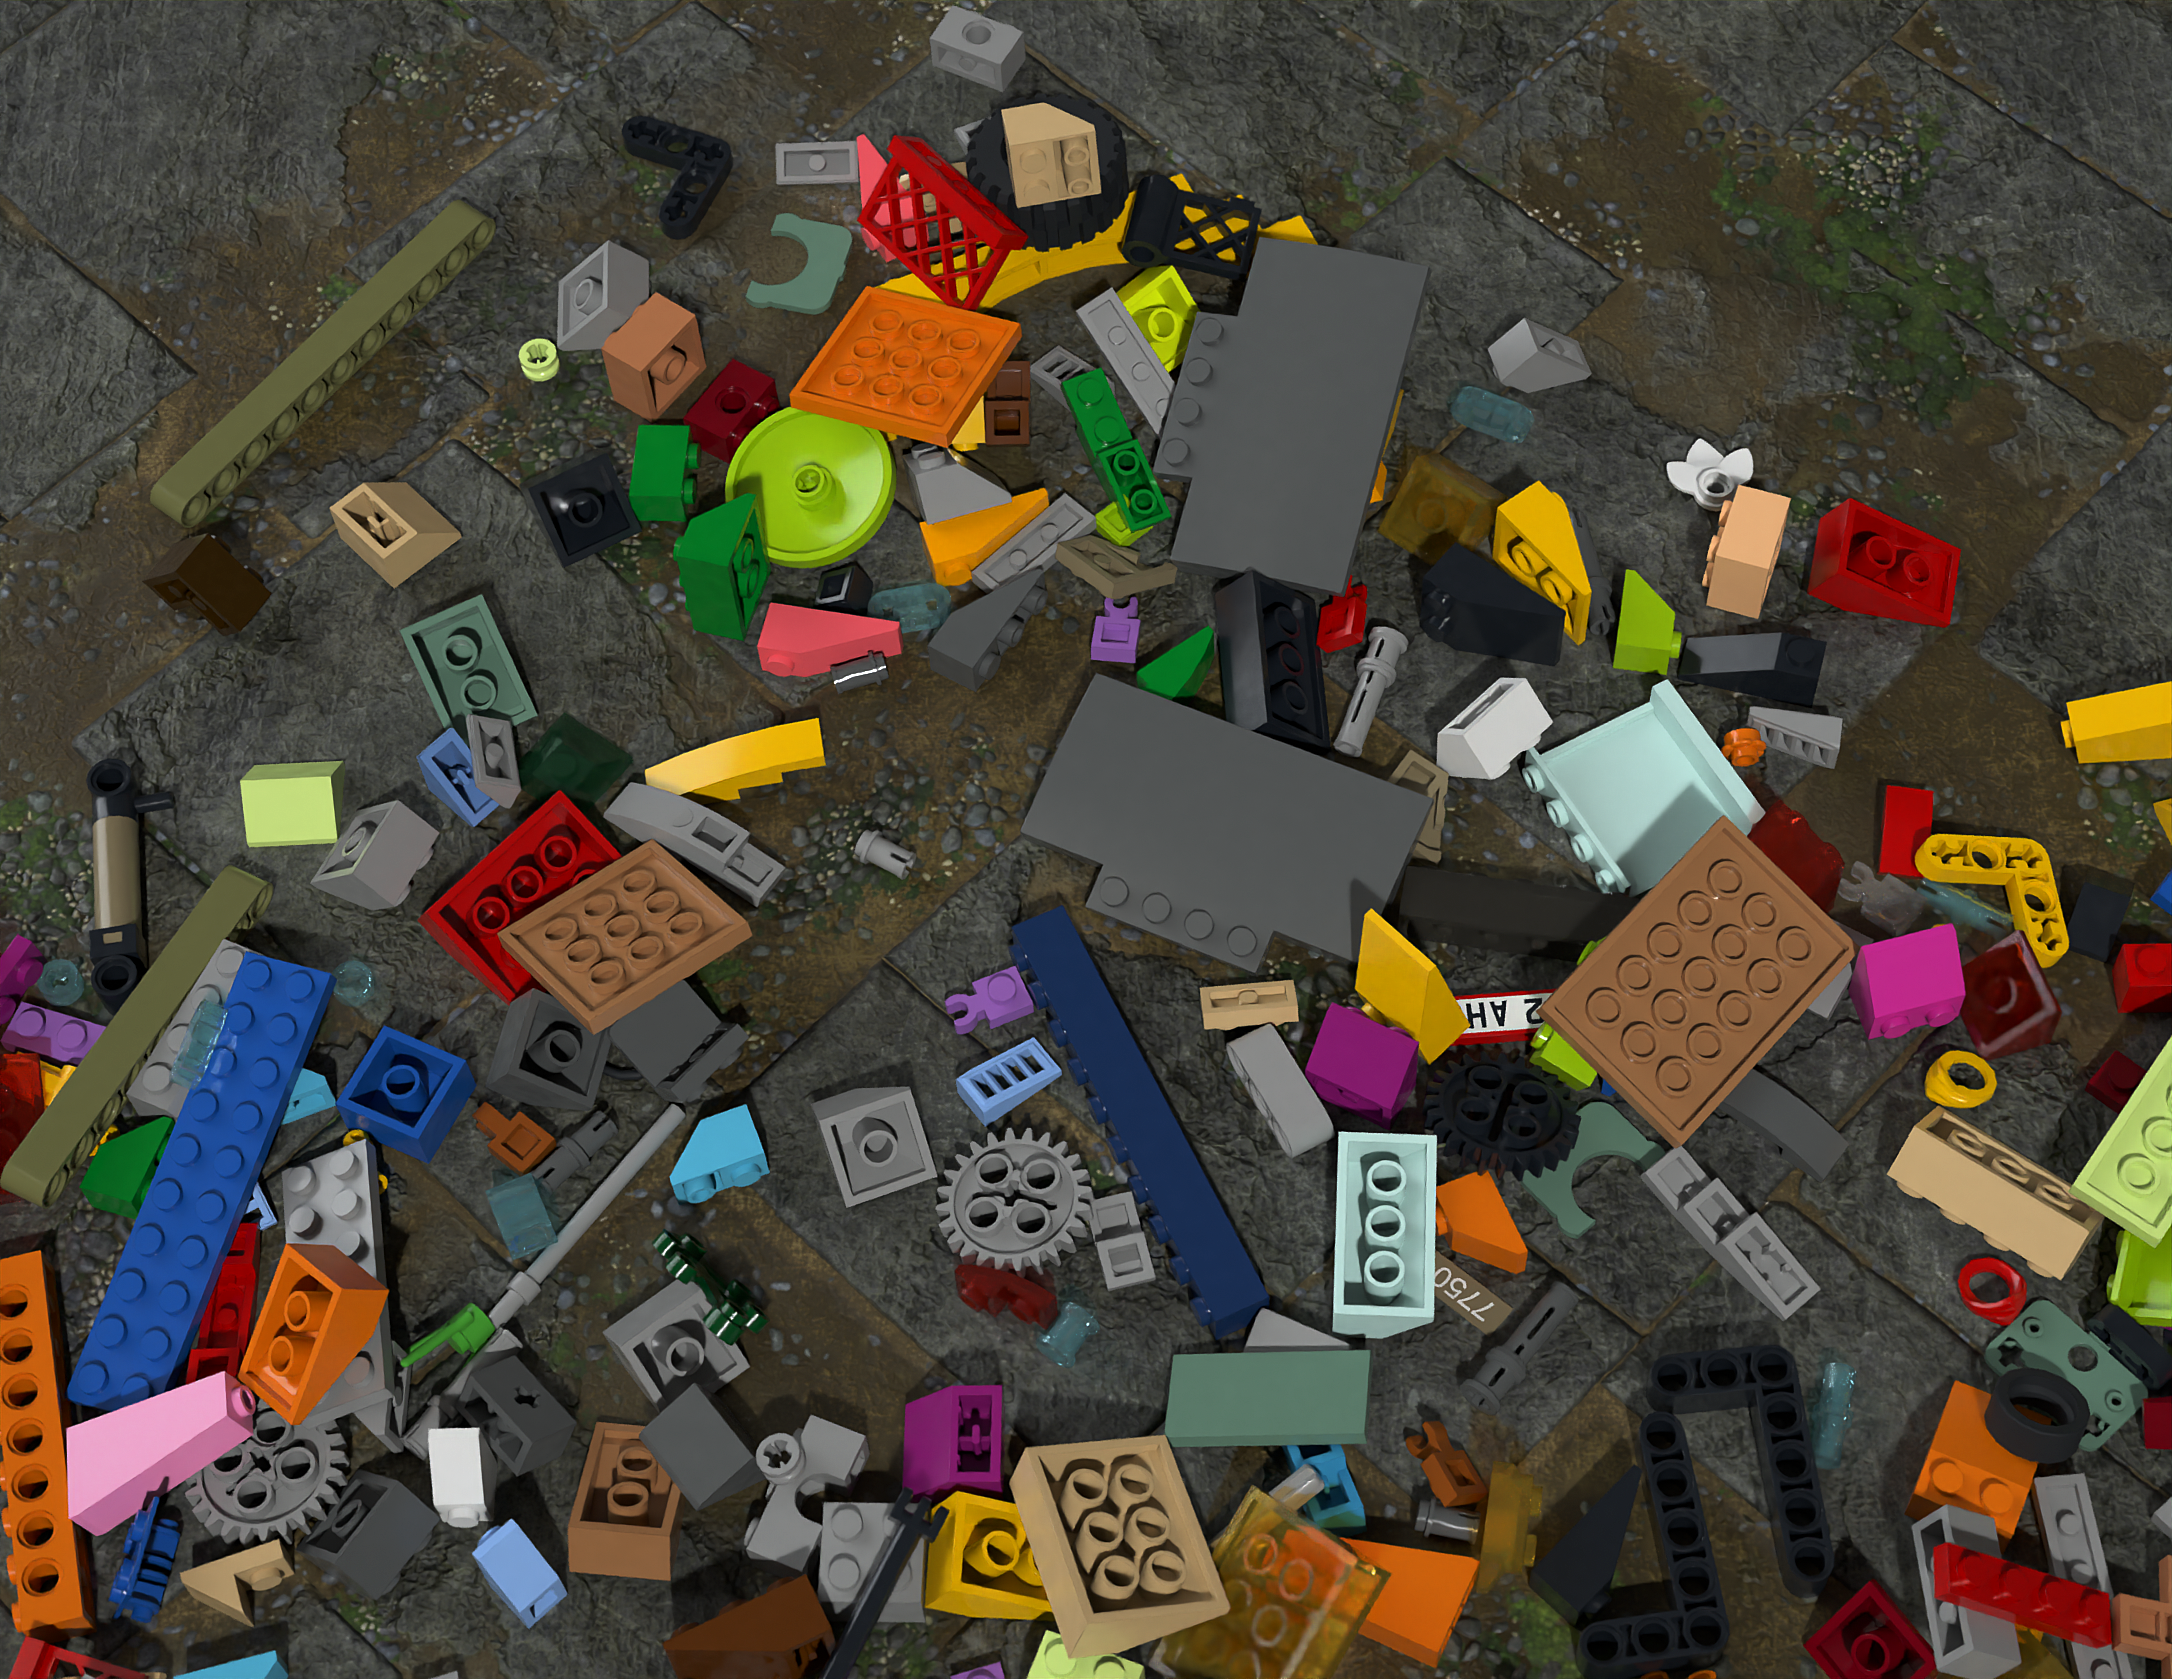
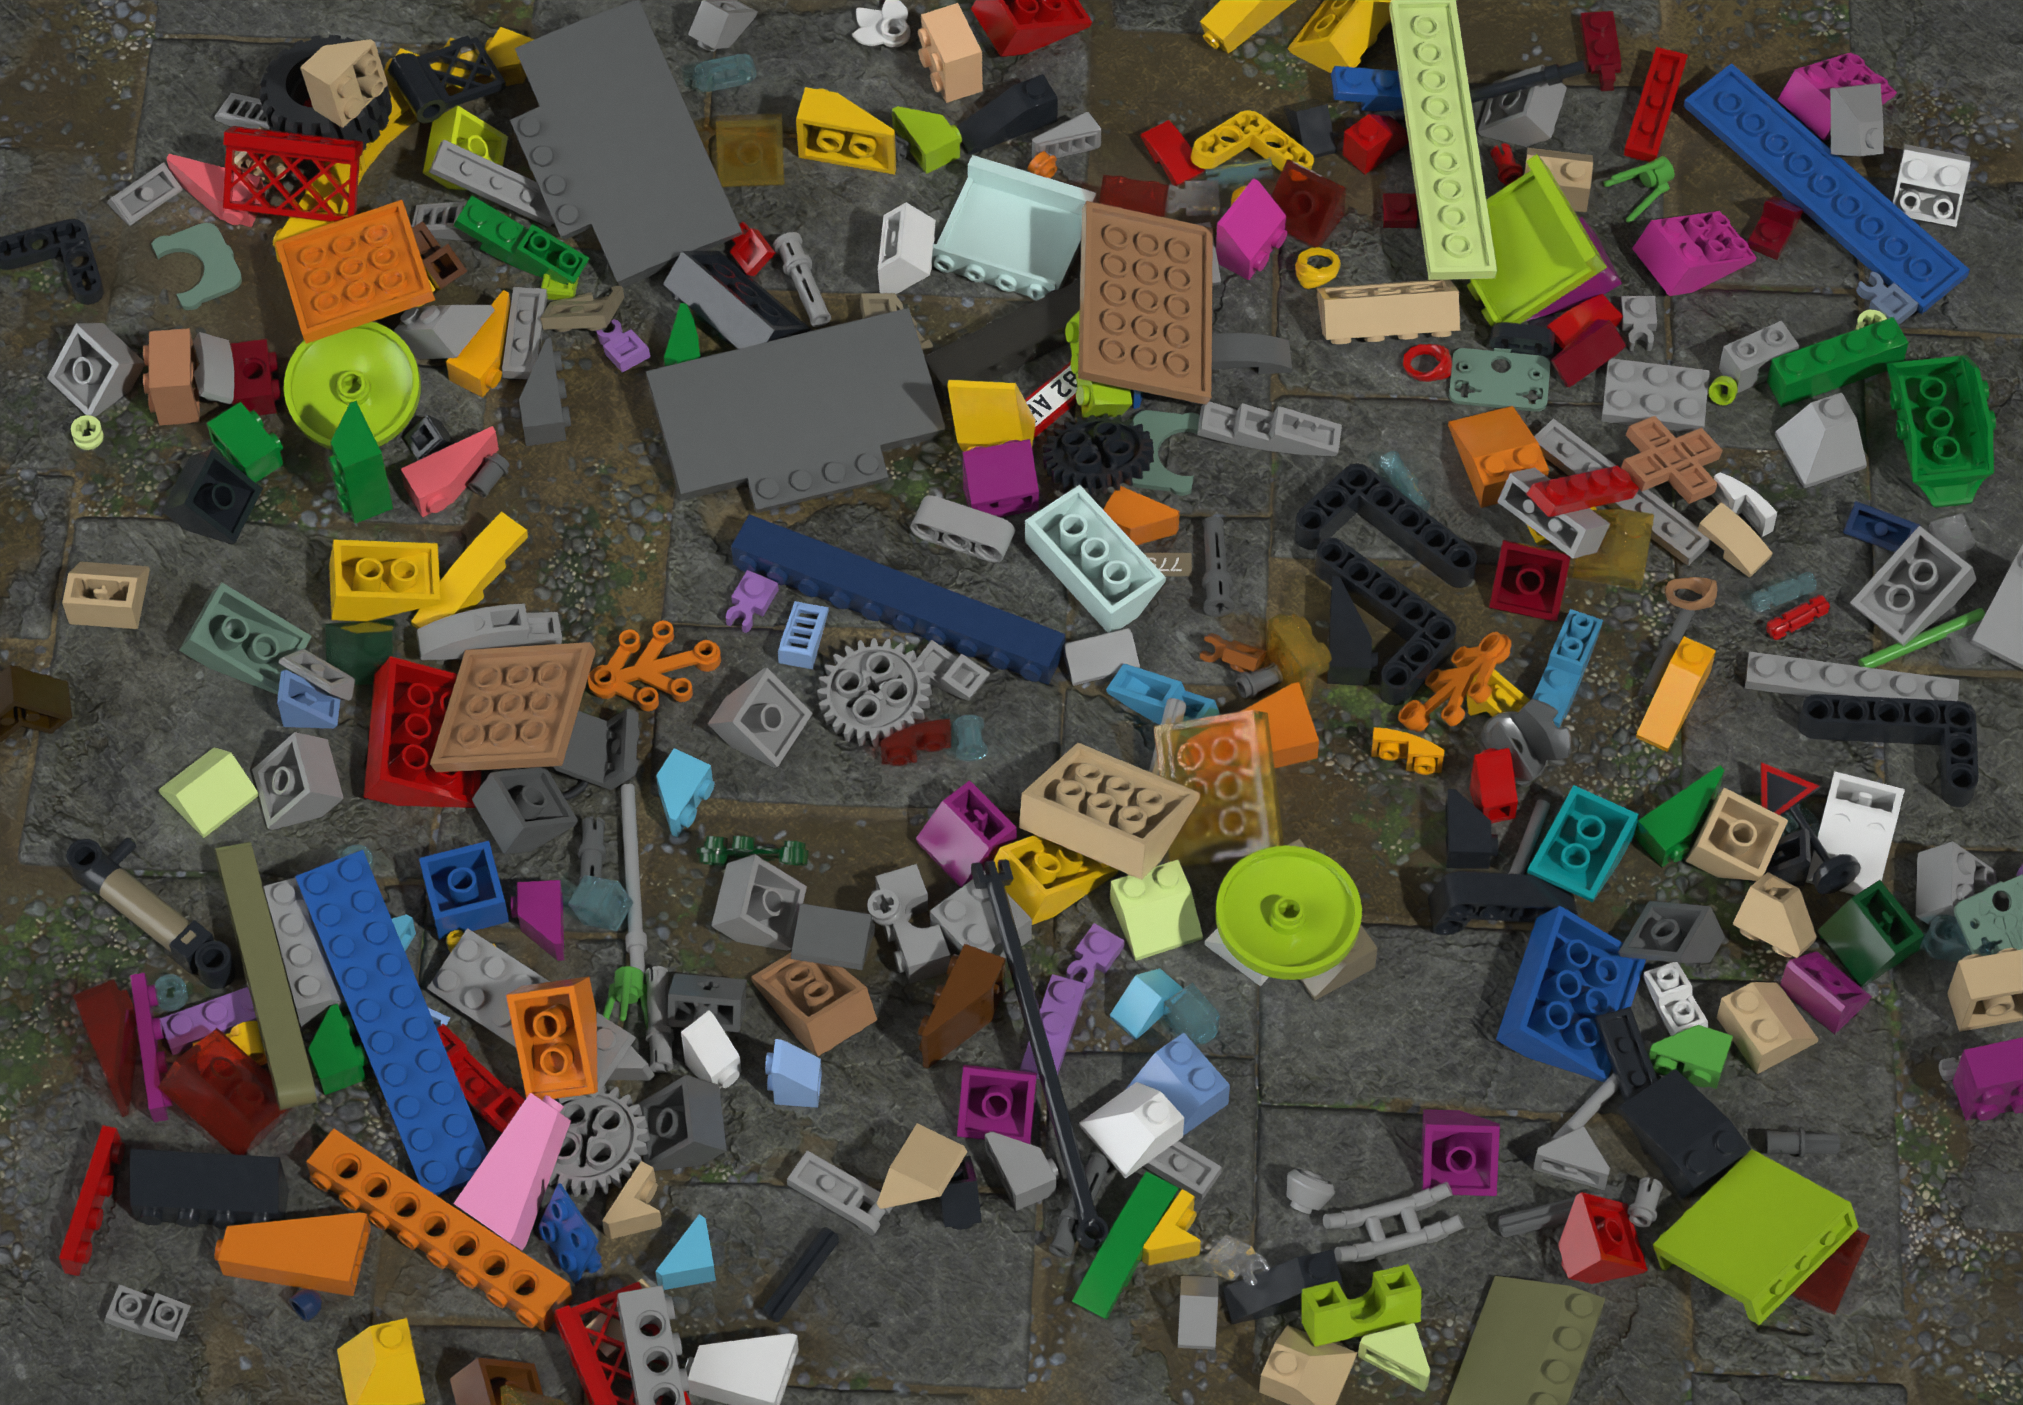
camera: 45 degrees left, 0 degrees up
(198, 1044) = (320, 945): clear light blue beam -> none
(457, 1183) = (541, 914): none -> magenta slope
(516, 1142) = (550, 866): dark orange plate -> none
(646, 702) = (382, 578): none -> yellow slope
(692, 373) = (216, 368): none -> light grey slope
(820, 996) = (649, 669): none -> orange plant
(883, 853) = (608, 564): light grey pin -> none
(911, 608) = (477, 415): clear light blue beam -> none
(977, 48) = (182, 55): light grey brick -> none
(1249, 1004) = (901, 496): tan plate -> none
(1269, 1398) = (1112, 685): sand green tile -> none
(1488, 611) = (837, 184): black slope -> none
(2029, 1438) = (1509, 418): black tyre -> none

